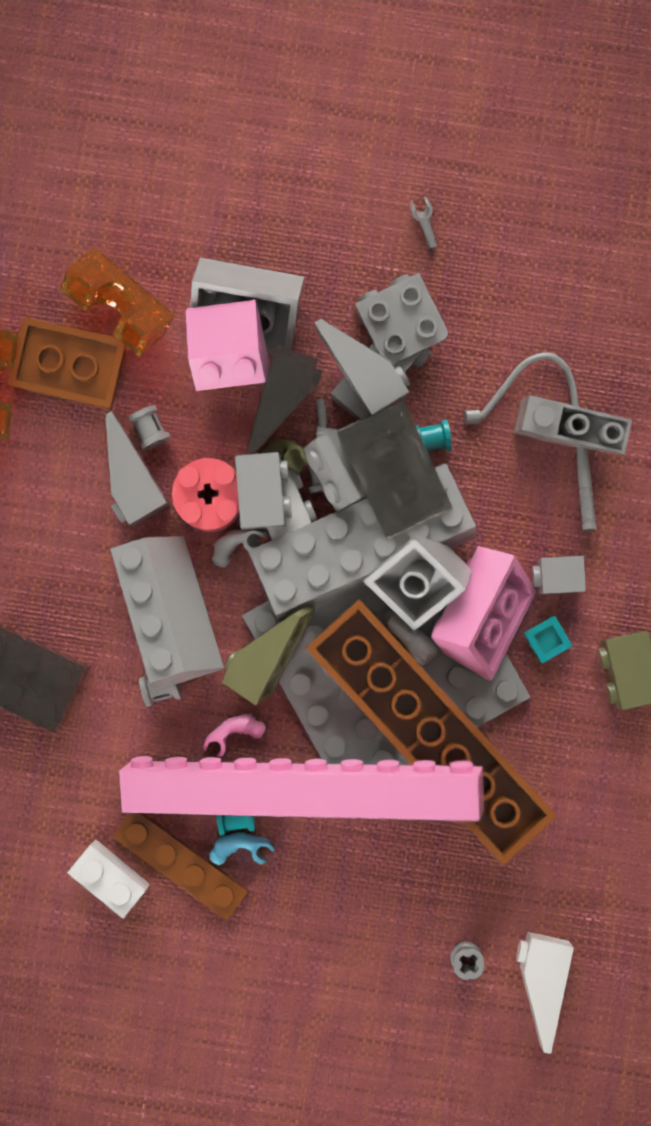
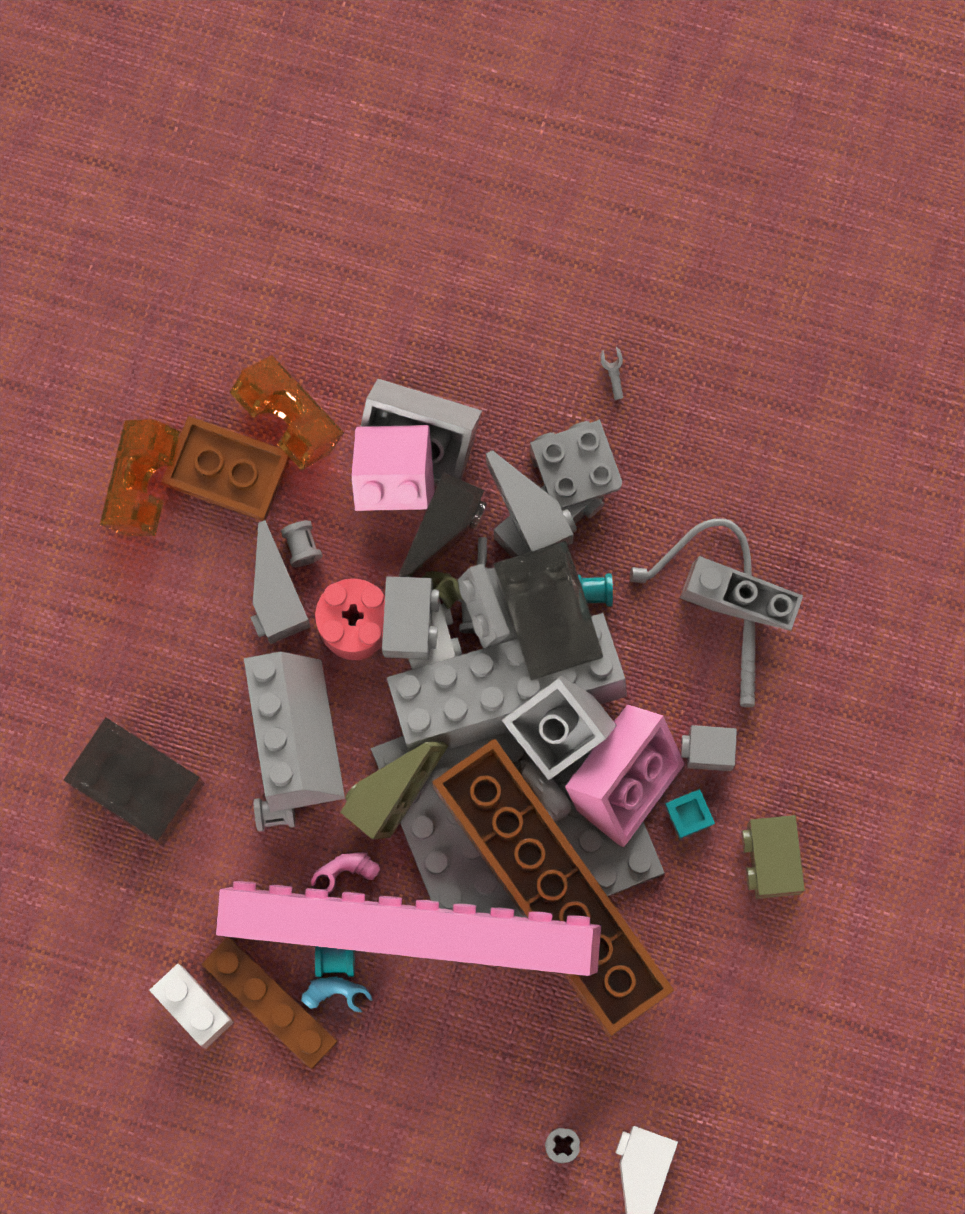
camera: 10 degrees right, 10 degrees down
(228, 543) = (367, 671): light grey piece -> none

